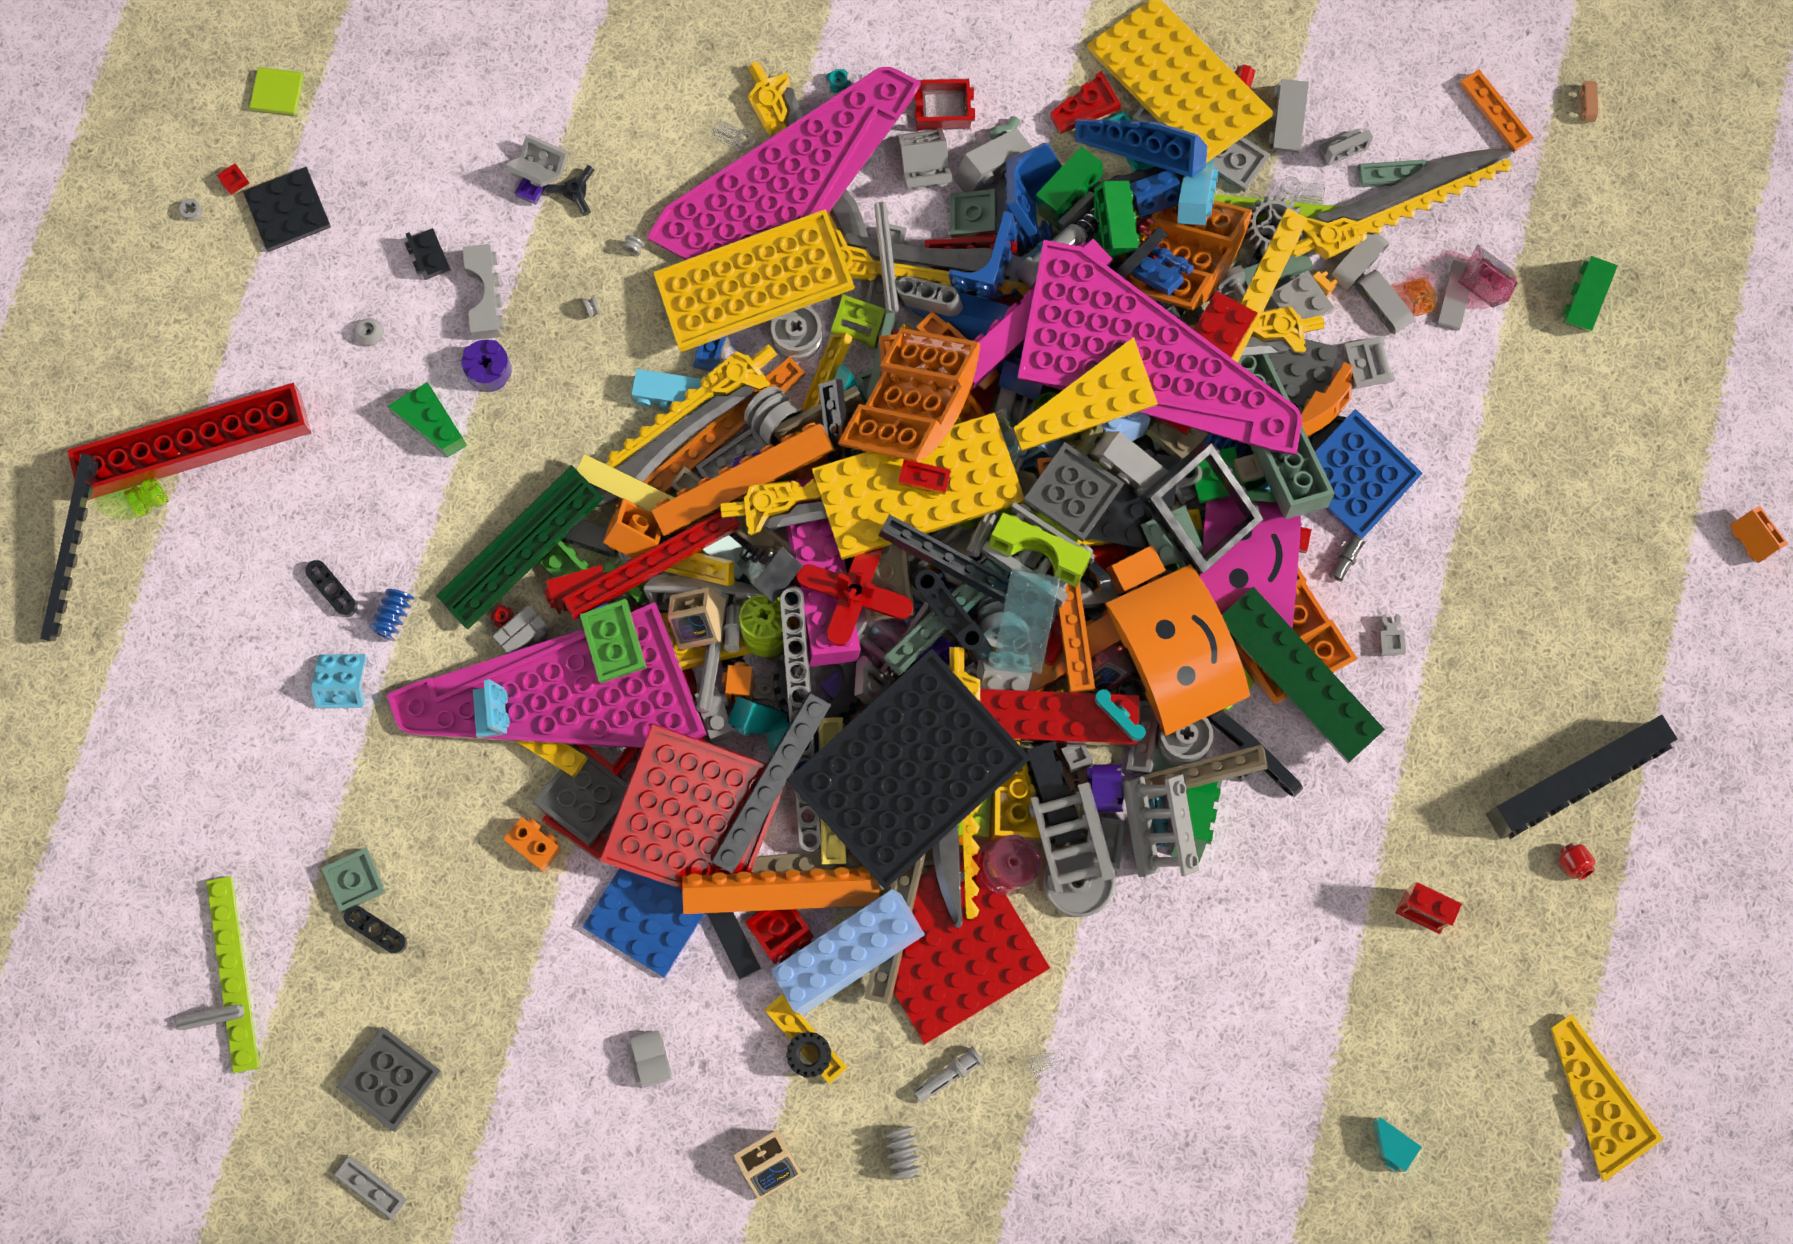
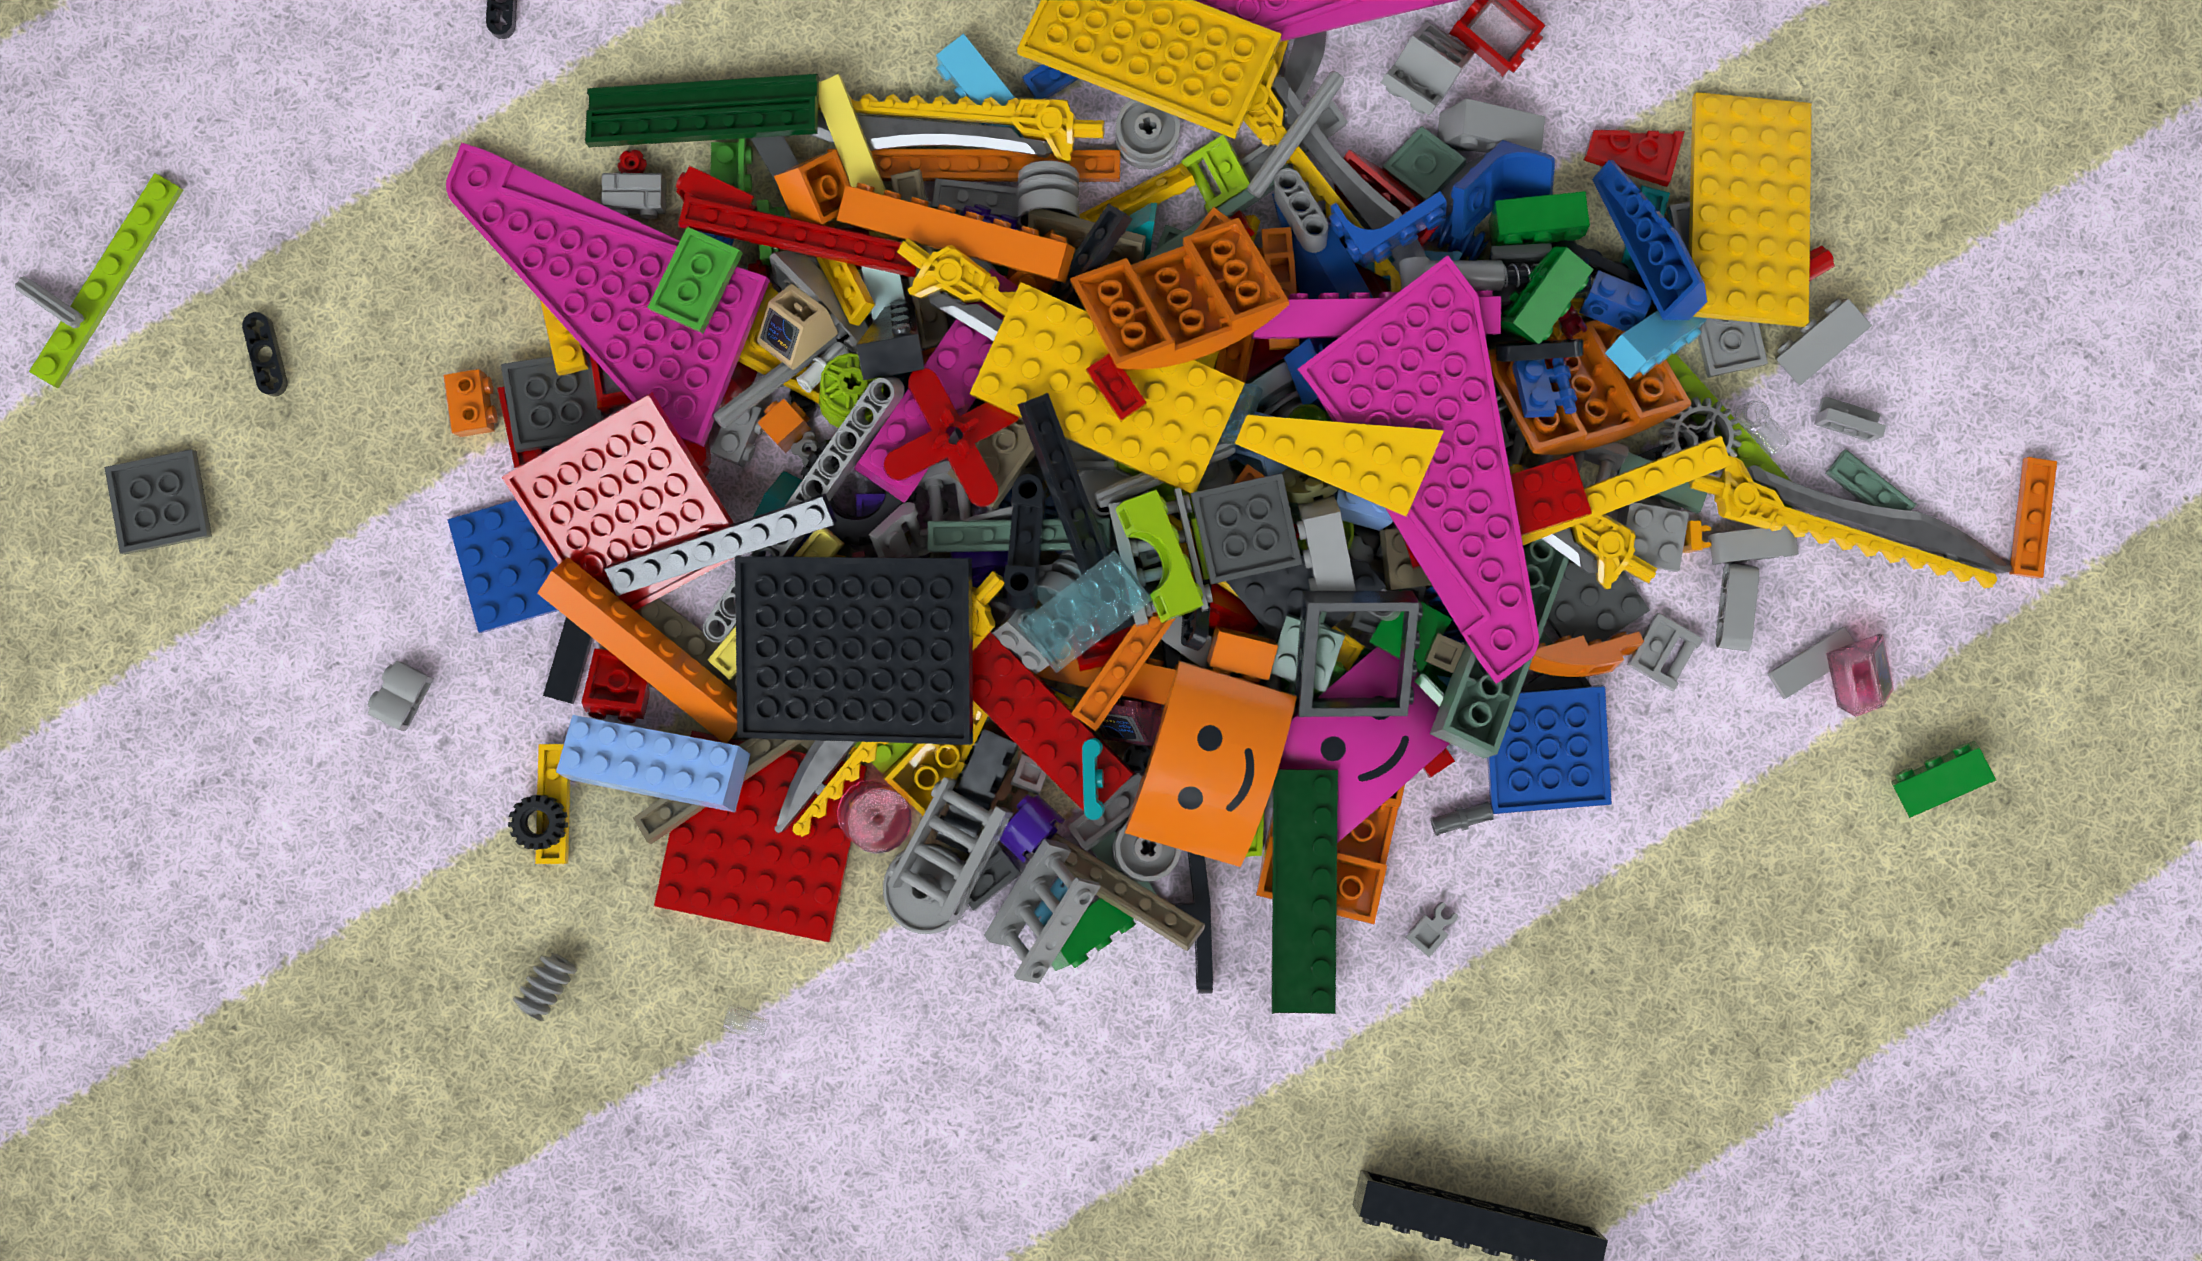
camera: 40 degrees right, 10 degrees up
(338, 681) = (431, 89): medium azure bracket -> none
(354, 880) = (284, 290): sand green plate -> none
(370, 1187) = (60, 583): light grey tile -> none
(390, 613) = (532, 69): blue piece -> none
(490, 710) = (533, 244): medium azure bracket -> none
(753, 716) = (769, 467): teal slope -> none
(768, 1165) = (416, 884): tan slope -> none
(957, 1069) = (662, 955): light grey pin -> none
(998, 131) = (1526, 104): sand green arm -> none
(1421, 295) = (1779, 633): clear orange bracket -> none
(1428, 907) = (1218, 1210): red window -> none
(1589, 101) = (2135, 590): nougat beam -> none
(1758, 534) = (1873, 1155): orange brick -> none

